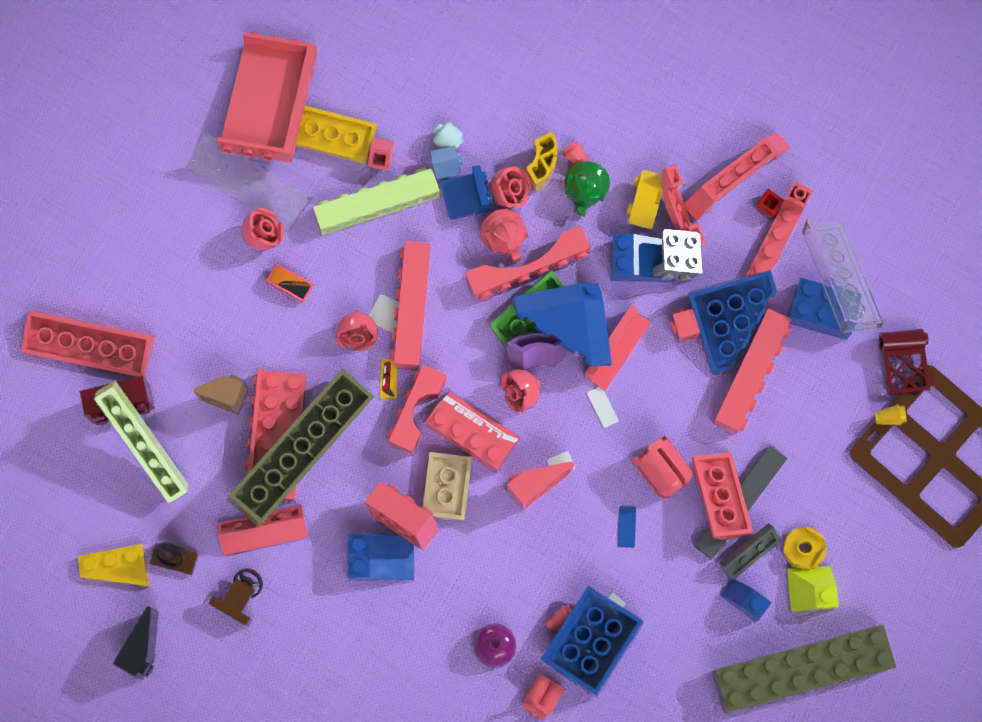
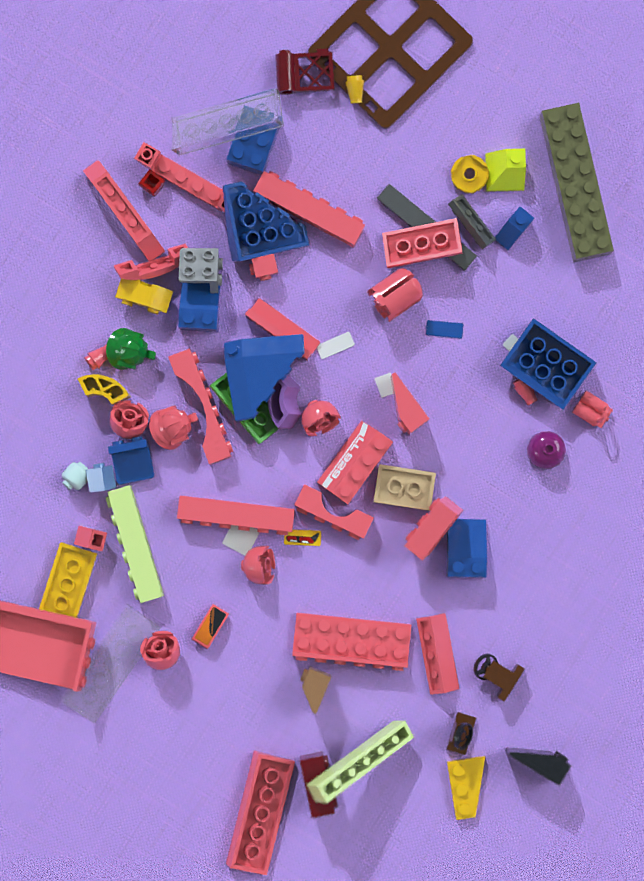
camera: 85 degrees left, 10 degrees up
(299, 448) = (368, 617): olive brick -> none

